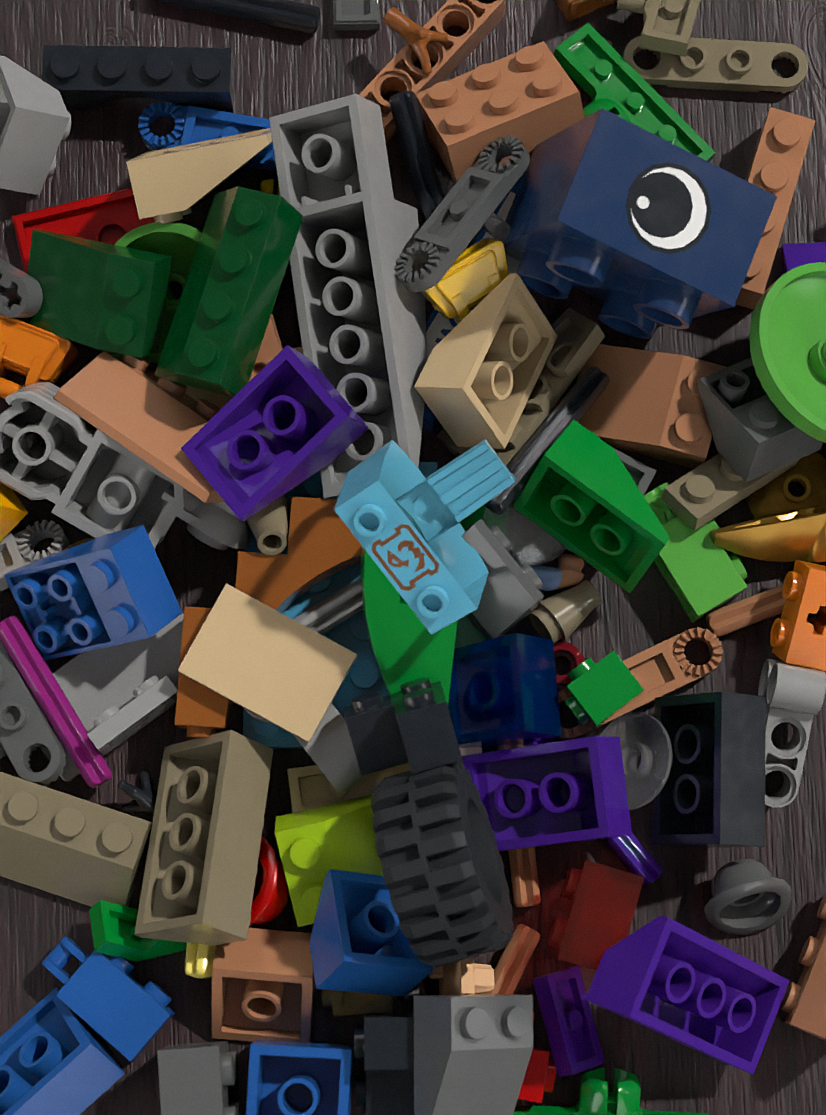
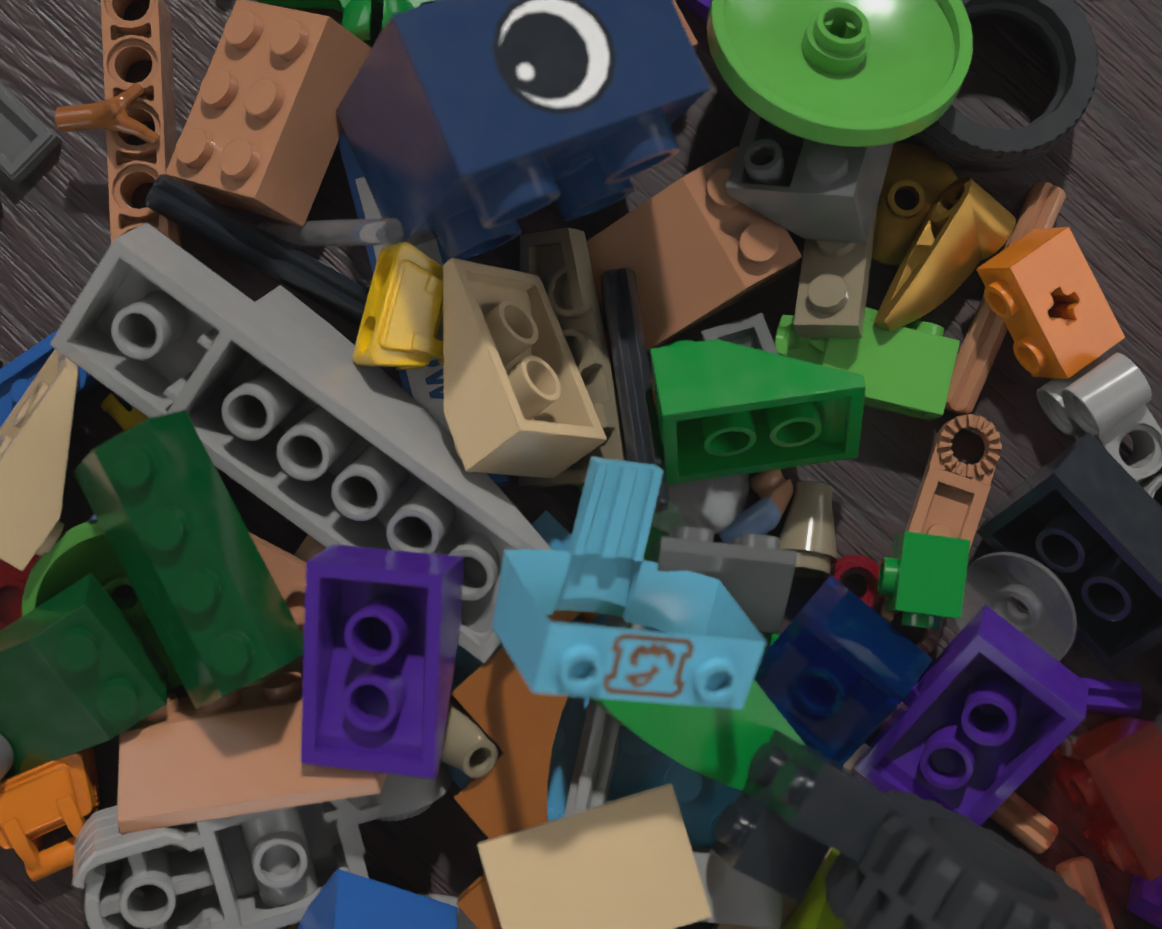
camera: 50 degrees left, 5 degrees up
(462, 214) = (338, 252): dark grey plate -> none

